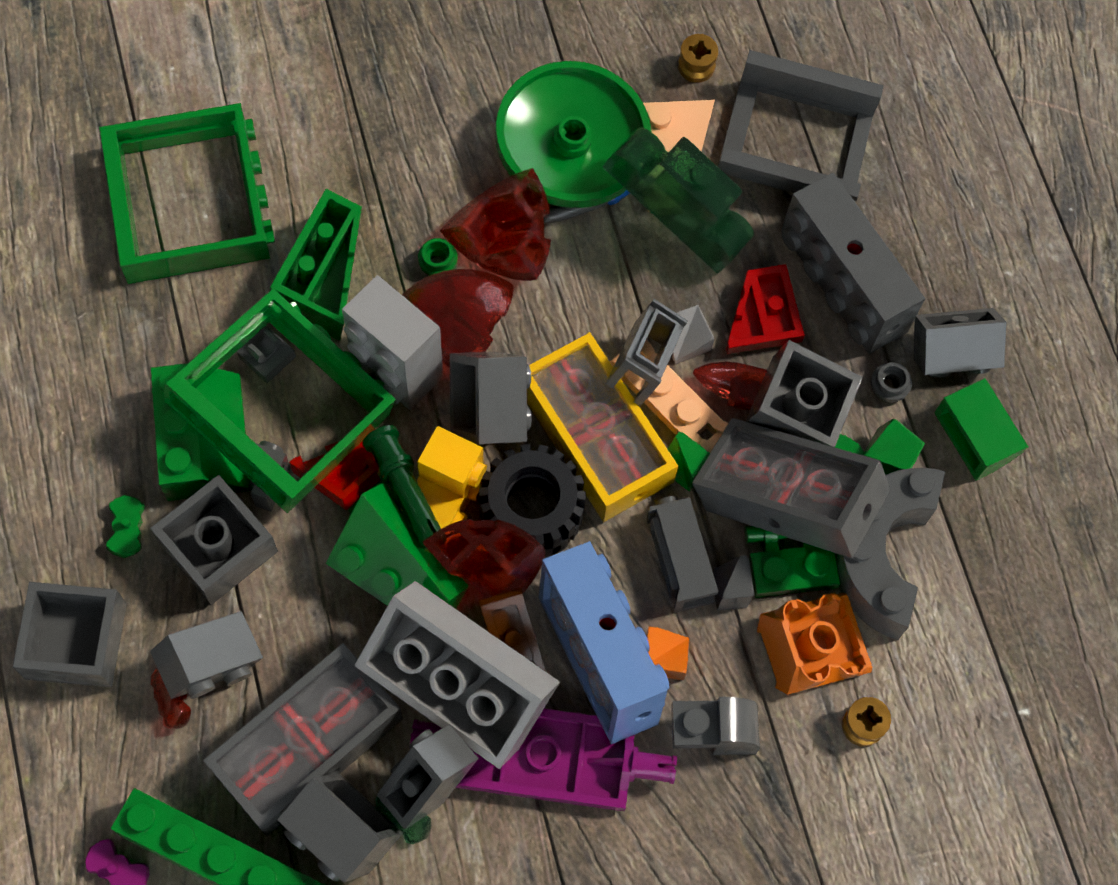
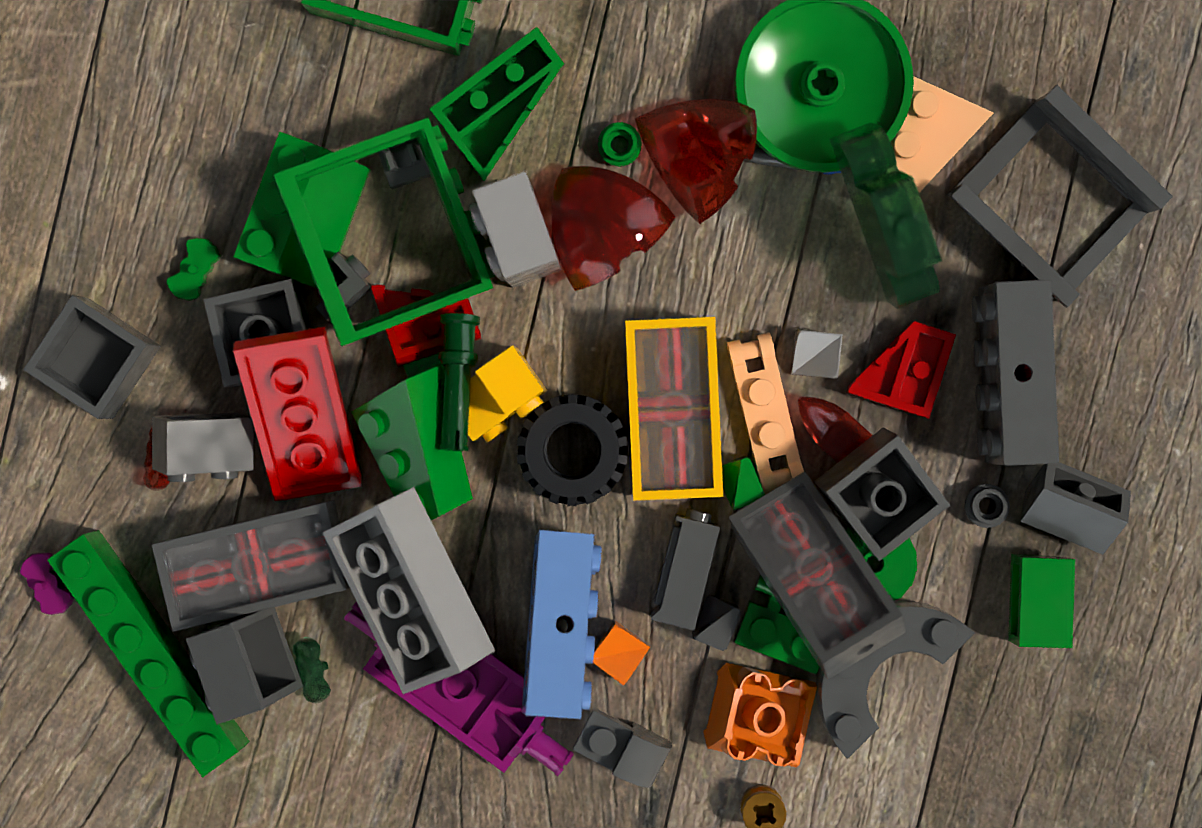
camera: 35 degrees right, 20 degrees up
(281, 583) = (298, 413): none -> red plate
(426, 775) = (338, 664): dark grey brick -> none
(488, 554) = (501, 491): clear red brick -> none
(489, 397) = (581, 334): dark grey piece -> none
(510, 622) = (487, 566): reddish brown plate -> none
(661, 326) = (728, 374): dark grey window -> none
(702, 66) = (998, 62): pearl gold wheel -> none
(894, 447) = (943, 578): green slope -> none

